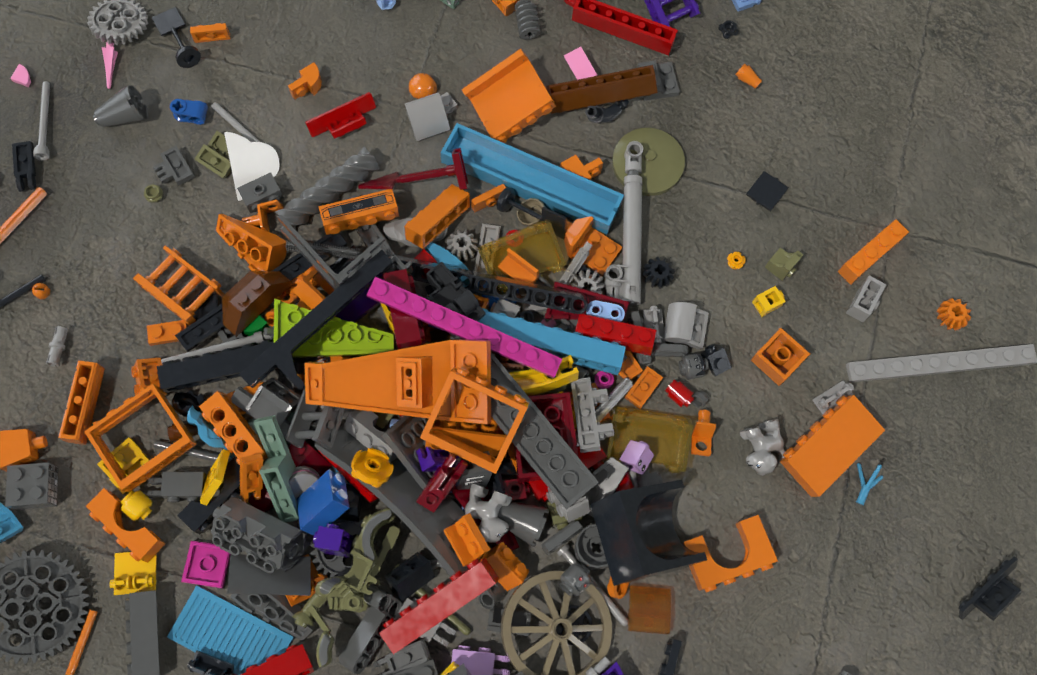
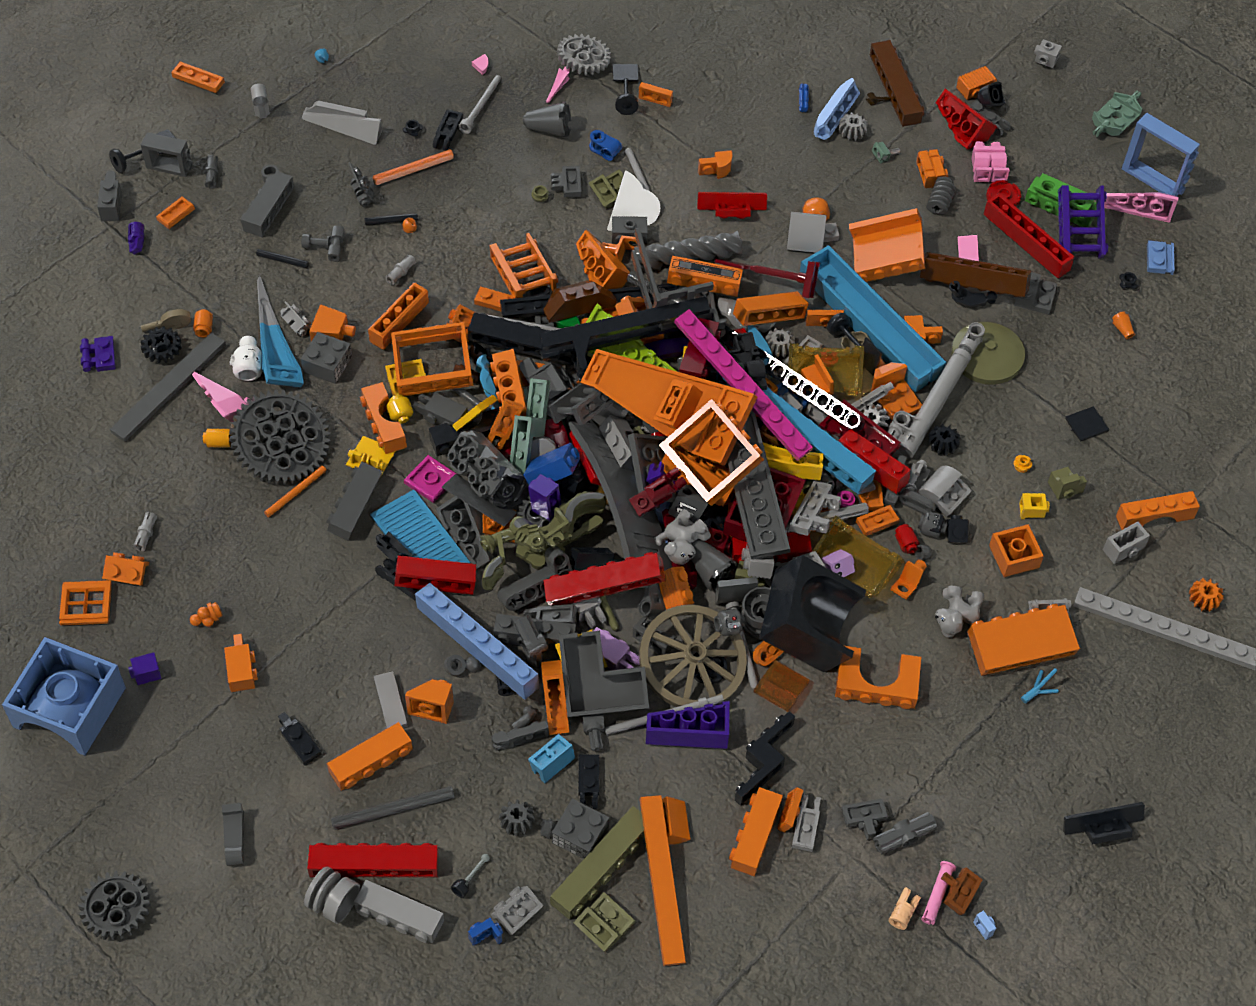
camera: 30 degrees right, 15 degrees down
(374, 476) = (607, 456): light orange plate -> none
(466, 540) = (655, 541): orange bracket -> none
(605, 310) = (876, 438): light blue plate -> none

